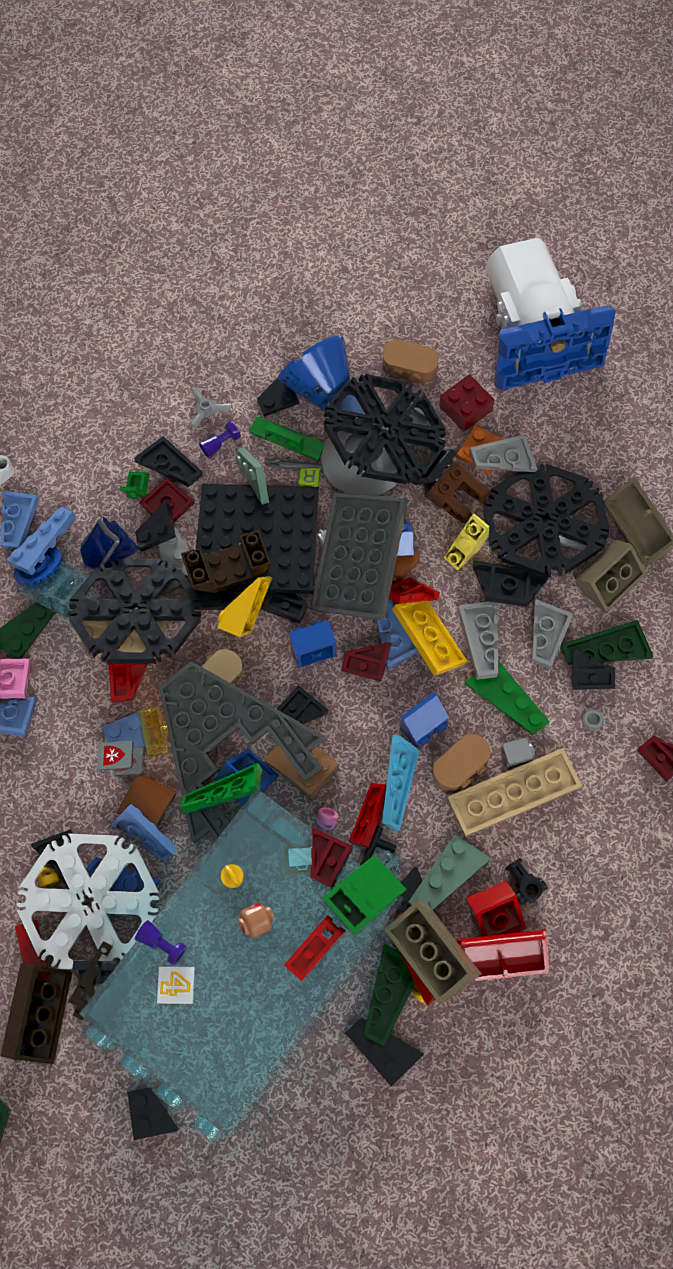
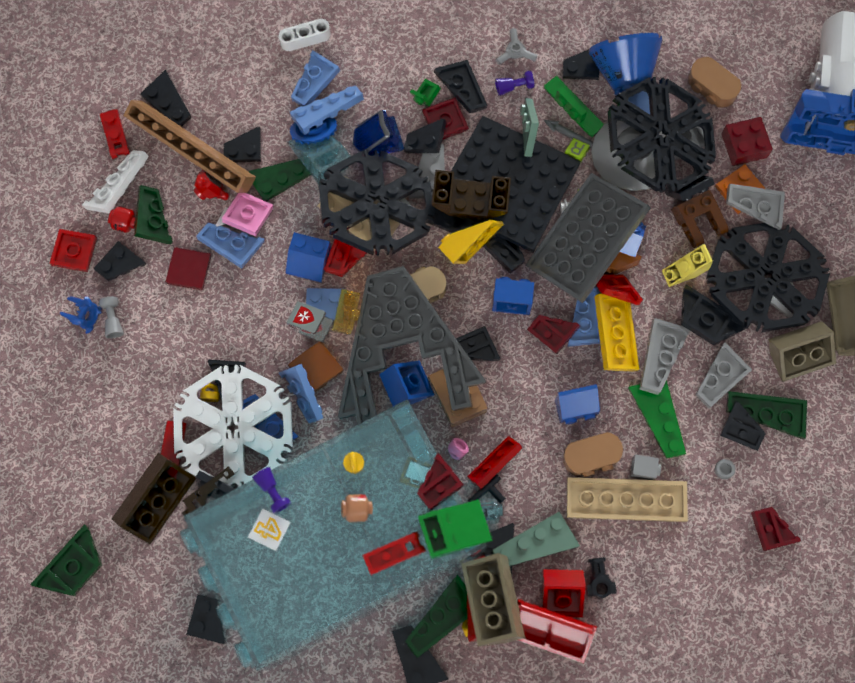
camera: 25 degrees right, 5 degrees up
(89, 695) = (307, 257): none -> blue slope
(223, 790) = (382, 387): green wing -> none
(400, 776) = (533, 444): medium azure wing -> none

